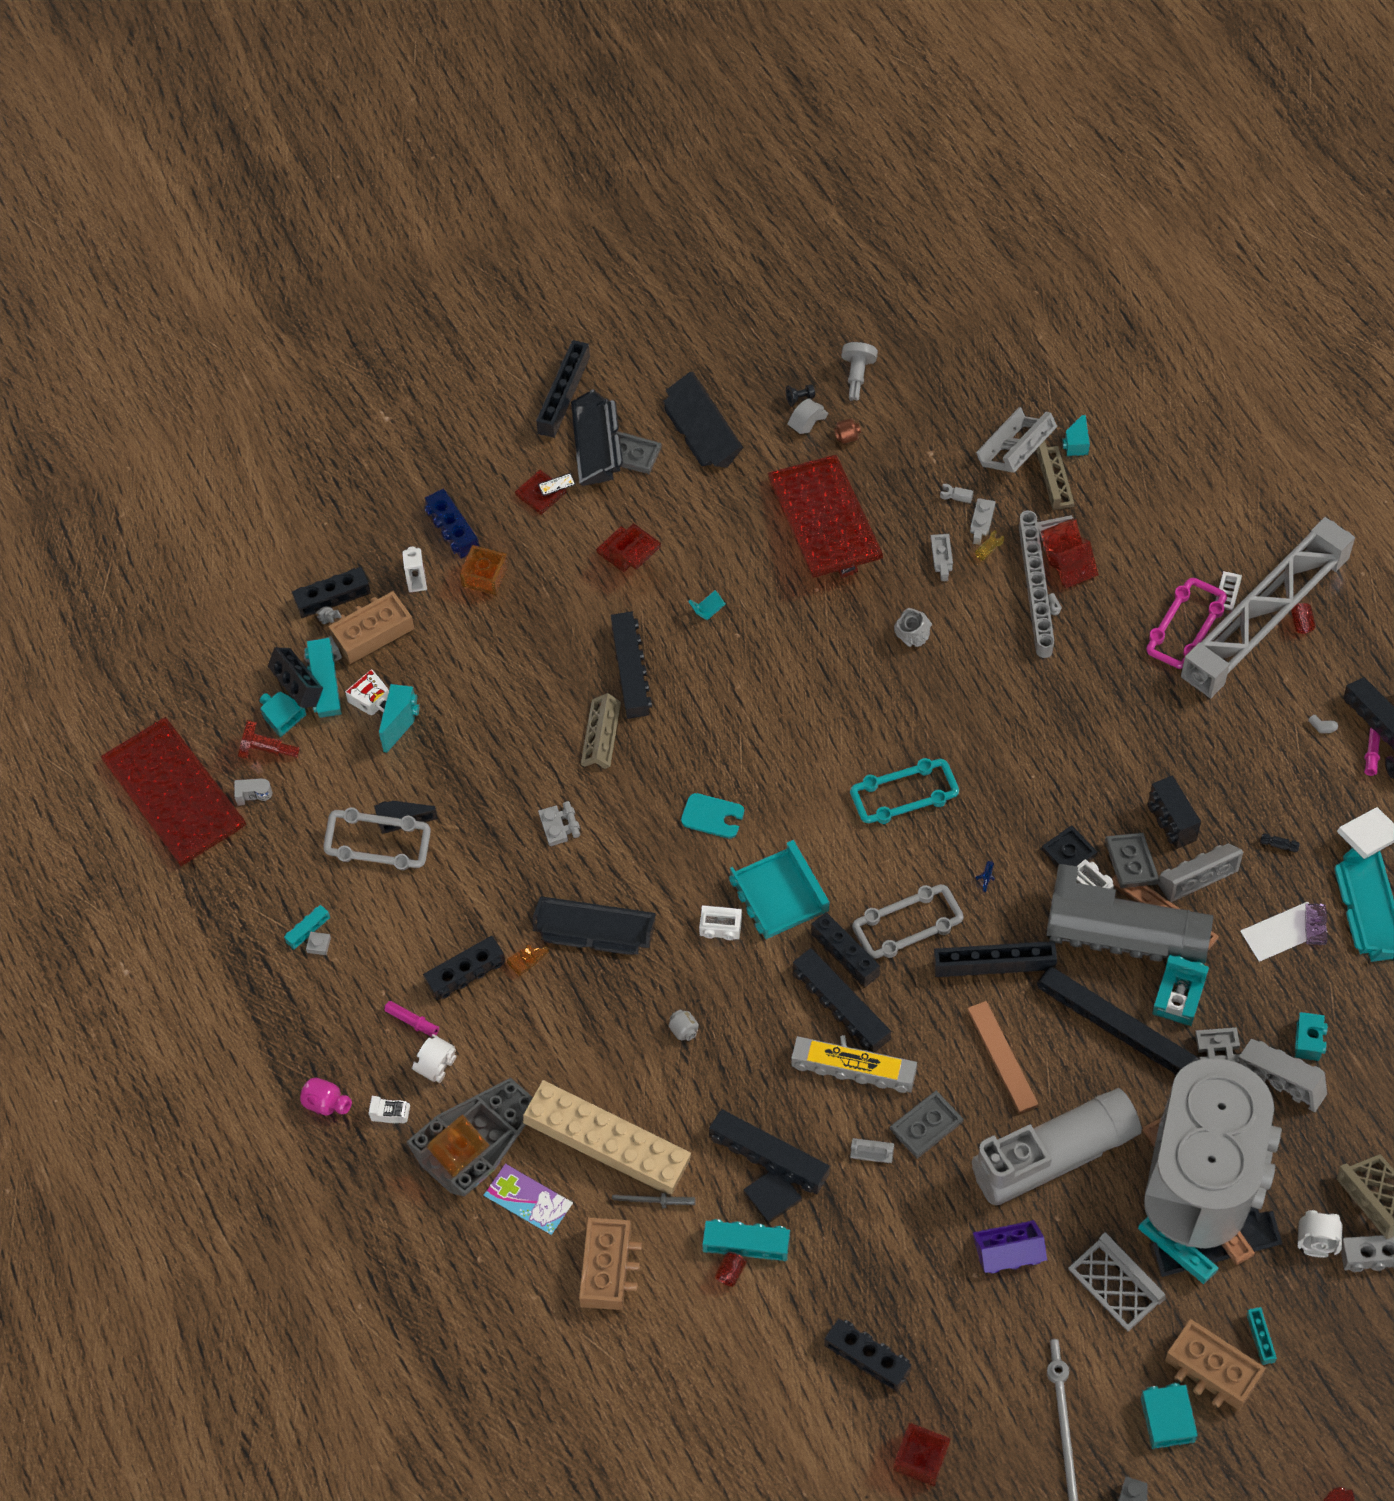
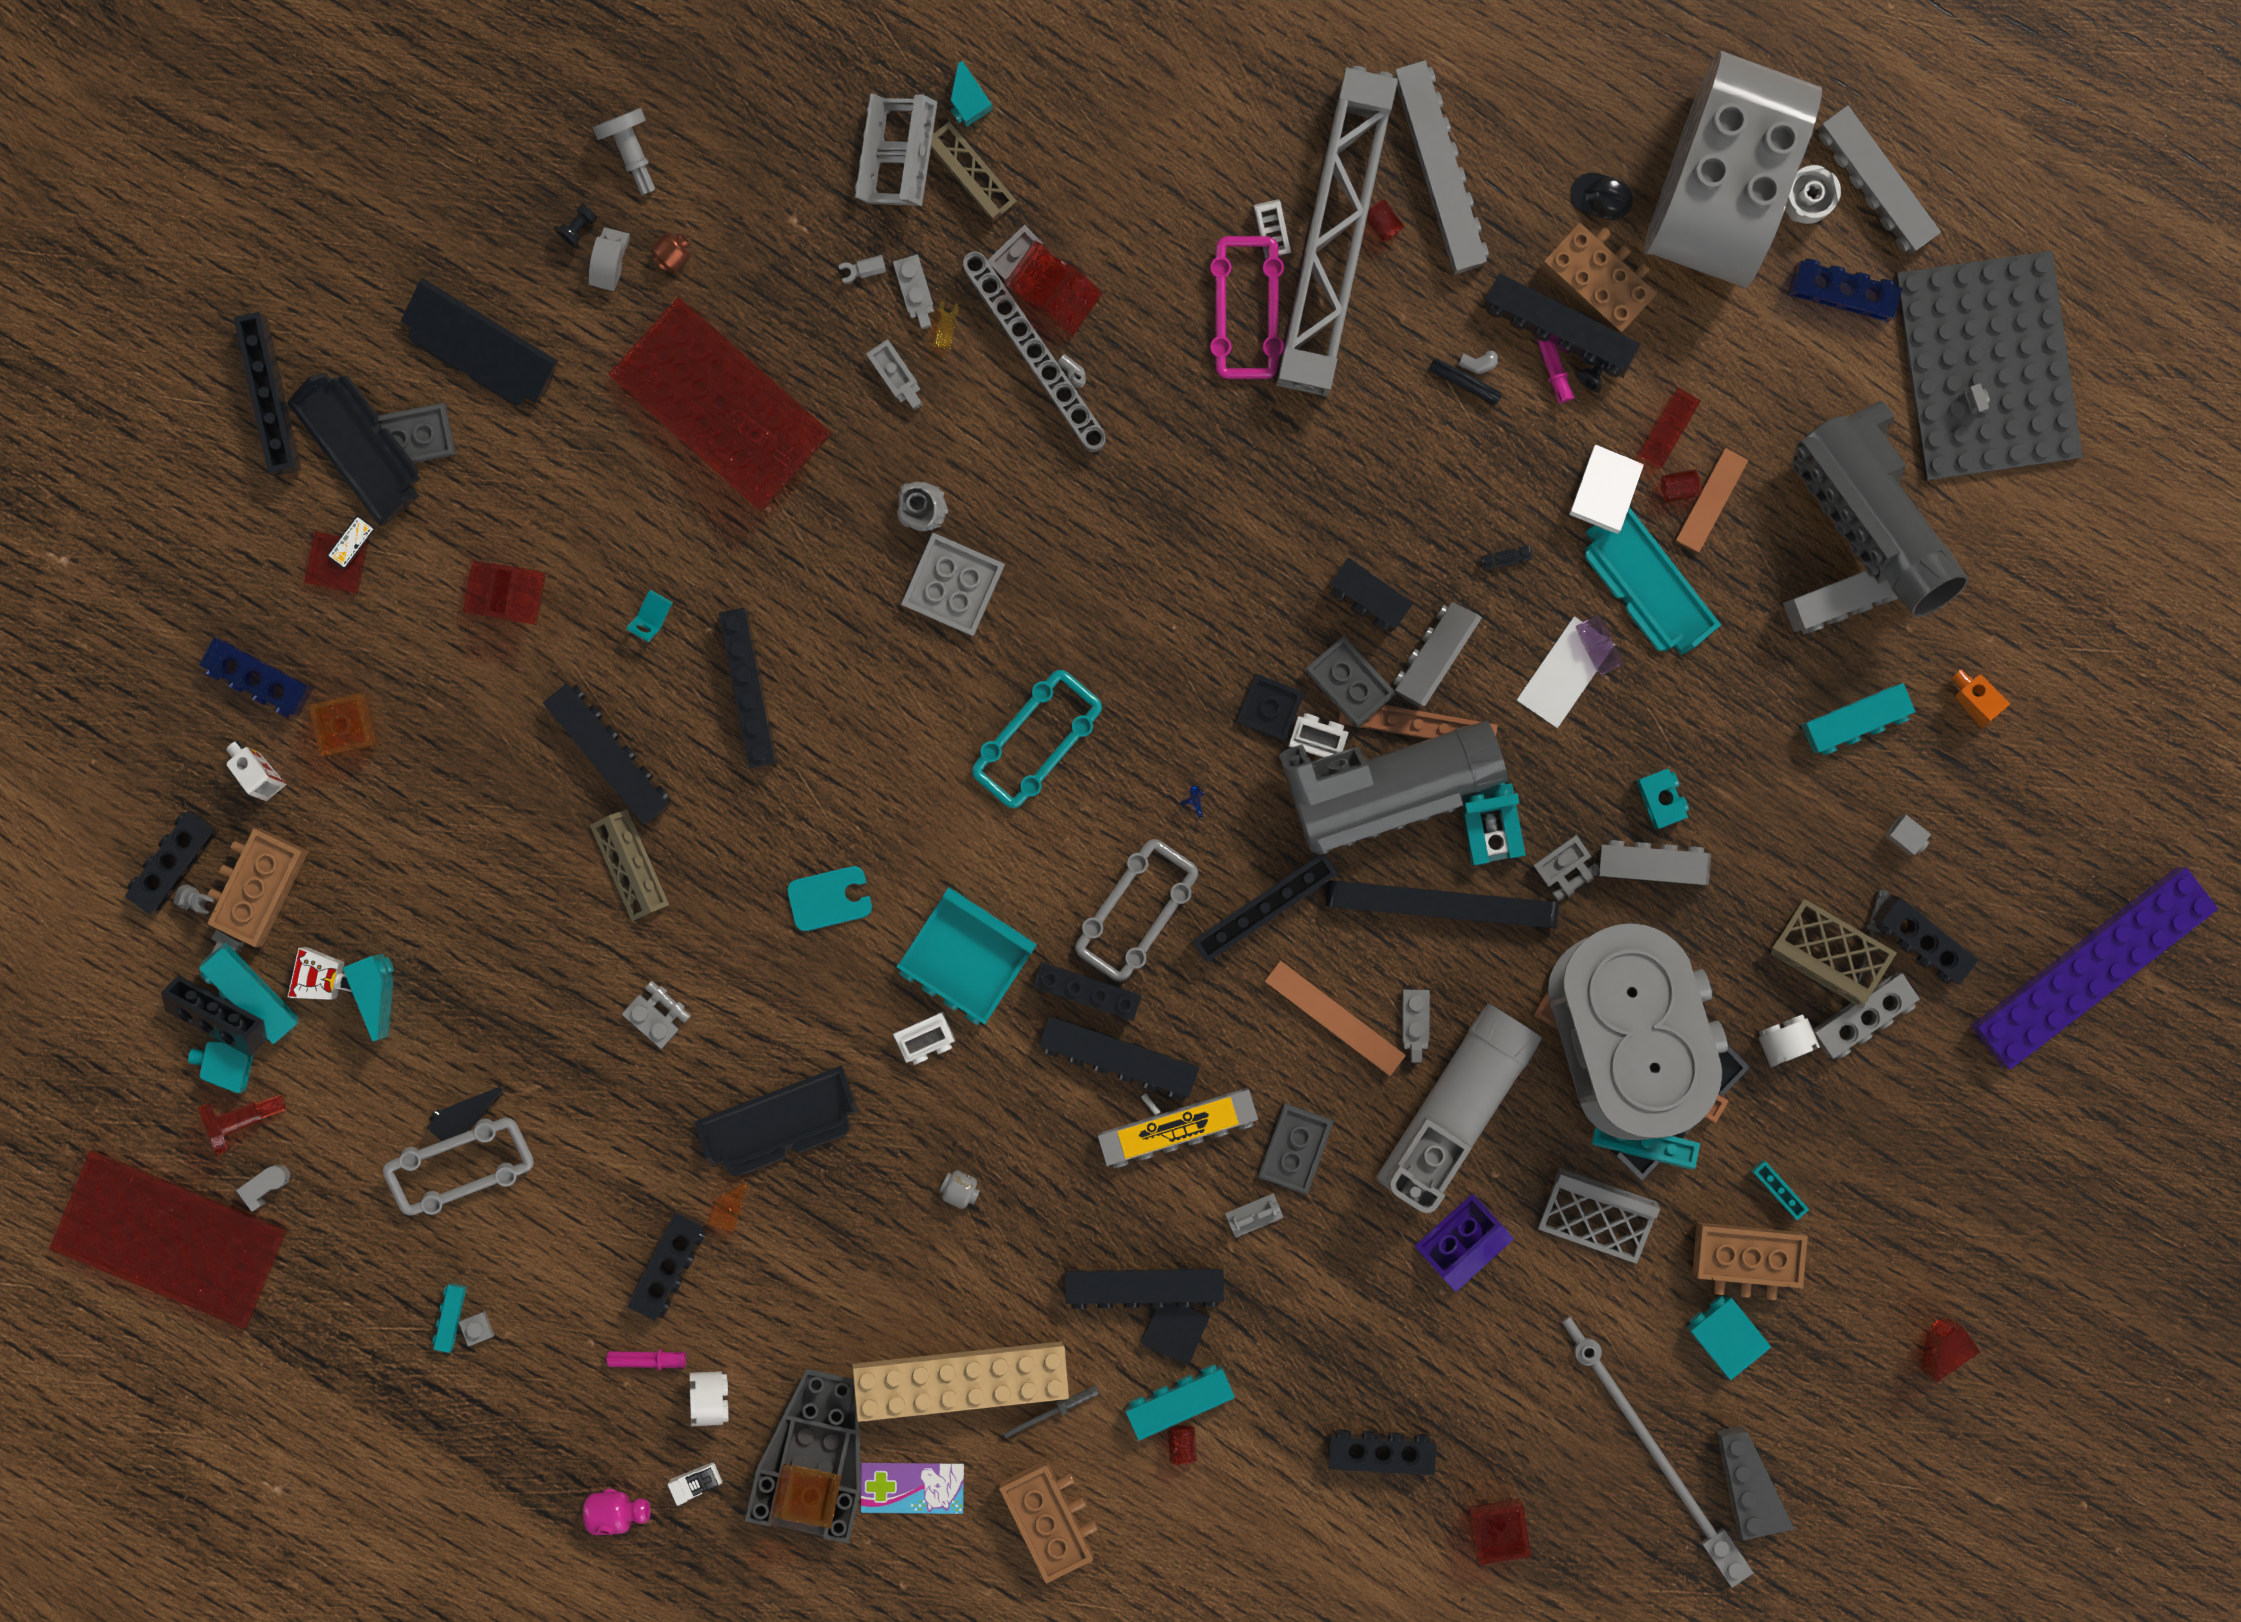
camera: 35 degrees left, 30 degrees up
(740, 672) = (748, 688): none -> black brick
(905, 681) = (953, 584): none -> light grey plate
(1057, 1088) = (1415, 1022): none -> light grey hinge
(1308, 731) = (1465, 381): none -> black axle
(1356, 608) = (1440, 168): none -> light grey brick

